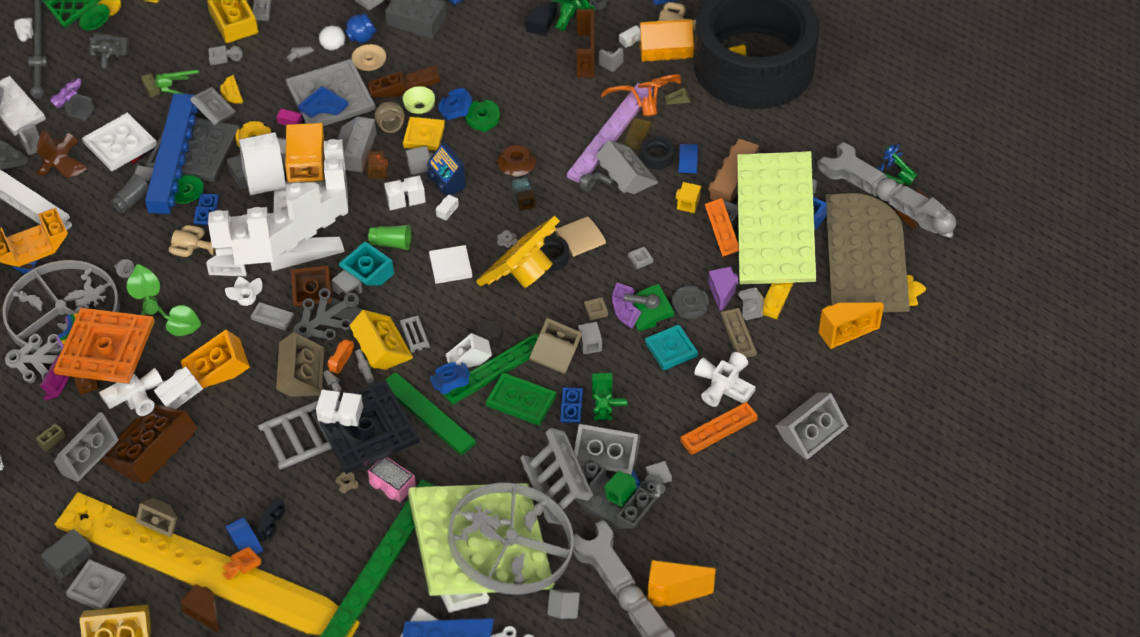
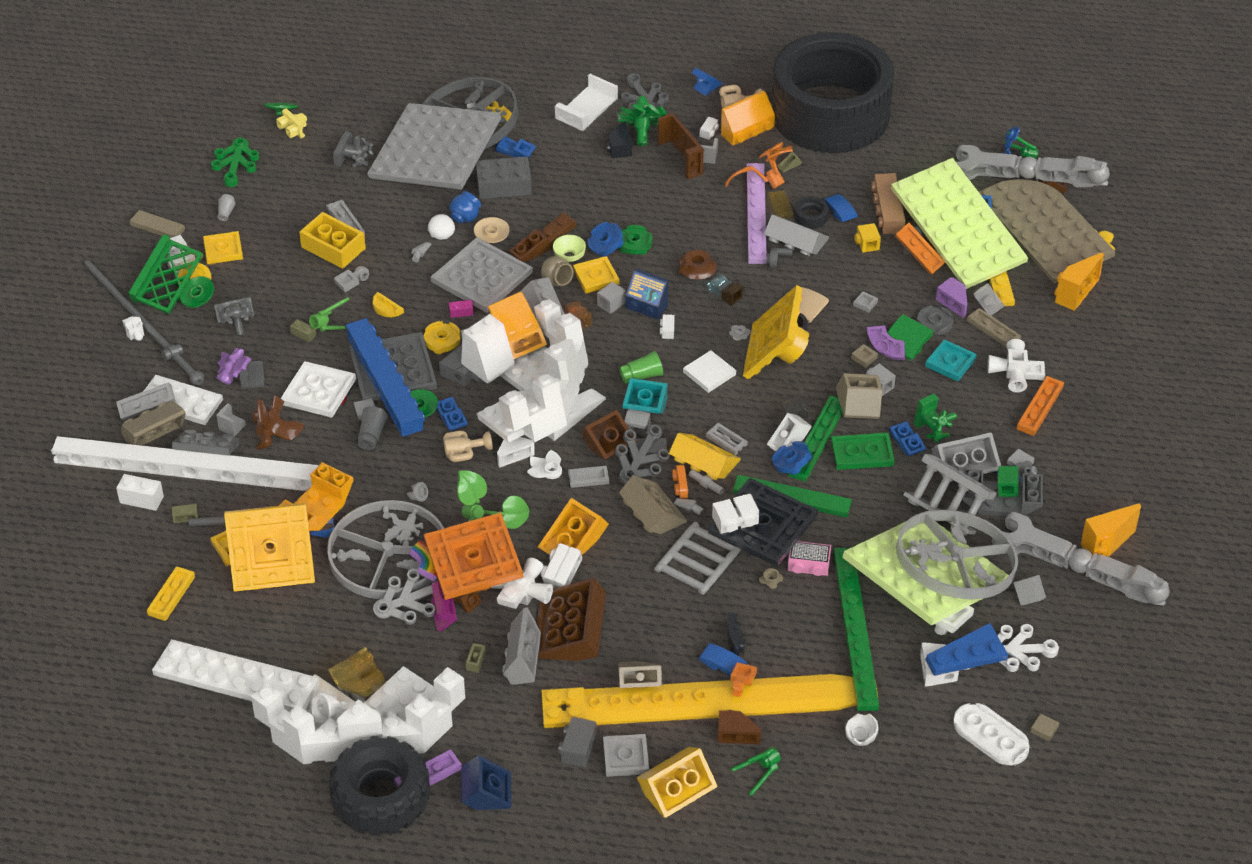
camera: 30 degrees left, 5 degrees down
(213, 106) = (387, 322): light grey tile -> none
(322, 102) = (484, 282): blue tile -> none
(411, 186) = (626, 326): white piece -> none
(651, 301) = (908, 330): dark grey bar -> none
(812, 424) = (1111, 371): light grey slope -> none

